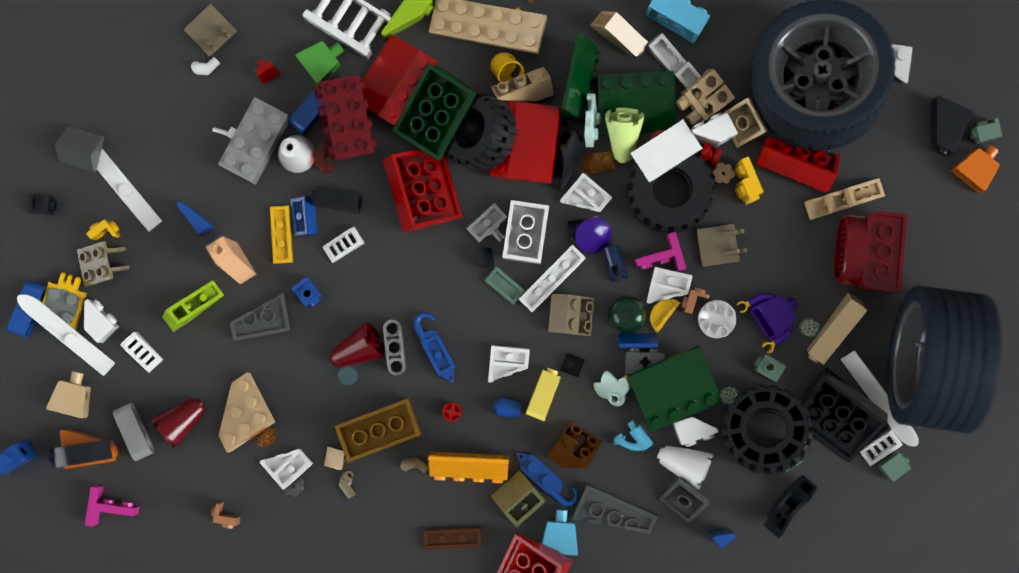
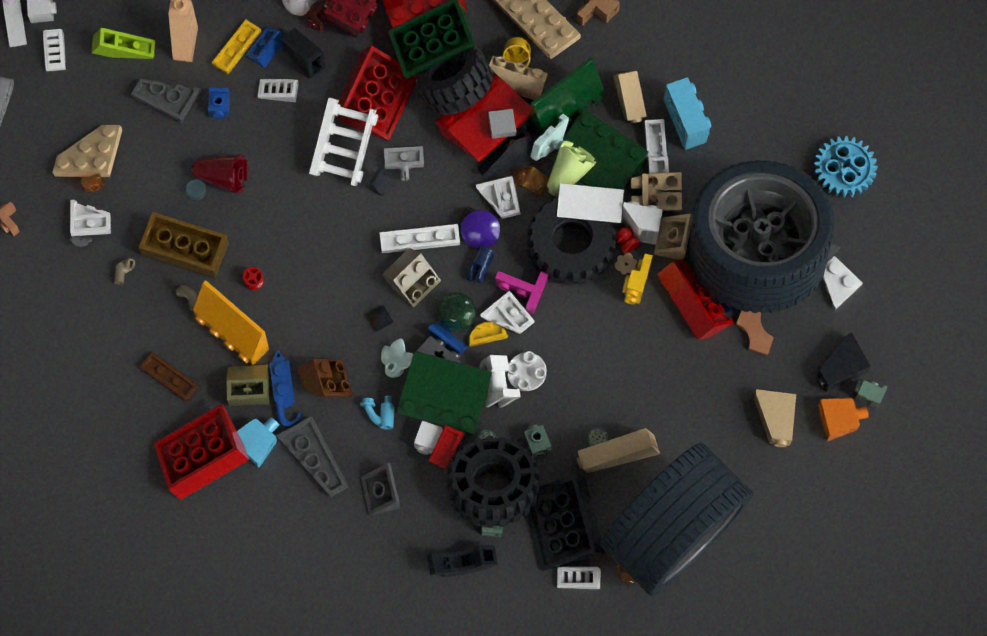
camera: 35 degrees right, 15 degrees down
(178, 420) = (36, 119): dark red cone -> none
(334, 458) = (130, 243): tan slope -> none
(390, 338) = (250, 203): light grey beam -> none
(422, 265) = (324, 146): none -> white fence
(435, 348) = (281, 221): blue plate -> none
(504, 285) = (377, 215): sand green tile -> none
(506, 361) = (329, 273): white wing -> none
(507, 407) = (299, 308): blue brick -> none
(525, 232) = (428, 185): white brick -> none
(543, 394) = (335, 319): light yellow slope -> none
(546, 139) = (502, 123): none -> light grey piece
(686, 463) = (407, 464): white cone -> none
(688, 302) = (514, 340): nougat bracket -> none
(709, 430) = (446, 447): none -> red tile
(711, 353) = (498, 387): none -> white piece
(719, 245) = (576, 315): dark tan plate -> none
(722, 537) = (385, 540): blue slope -> none
(773, 315) = (574, 401): dark purple torso -> none
(844, 199) = (710, 358): tan slope -> none
(868, 154) = (758, 338): none -> nougat tile
(871, 251) = (694, 405): dark red brick -> none
(877, 395) = (610, 513): white piece -> none
(894, 466) = (577, 600): sand green brick -> none
(931, 205) = (777, 415): none -> tan slope

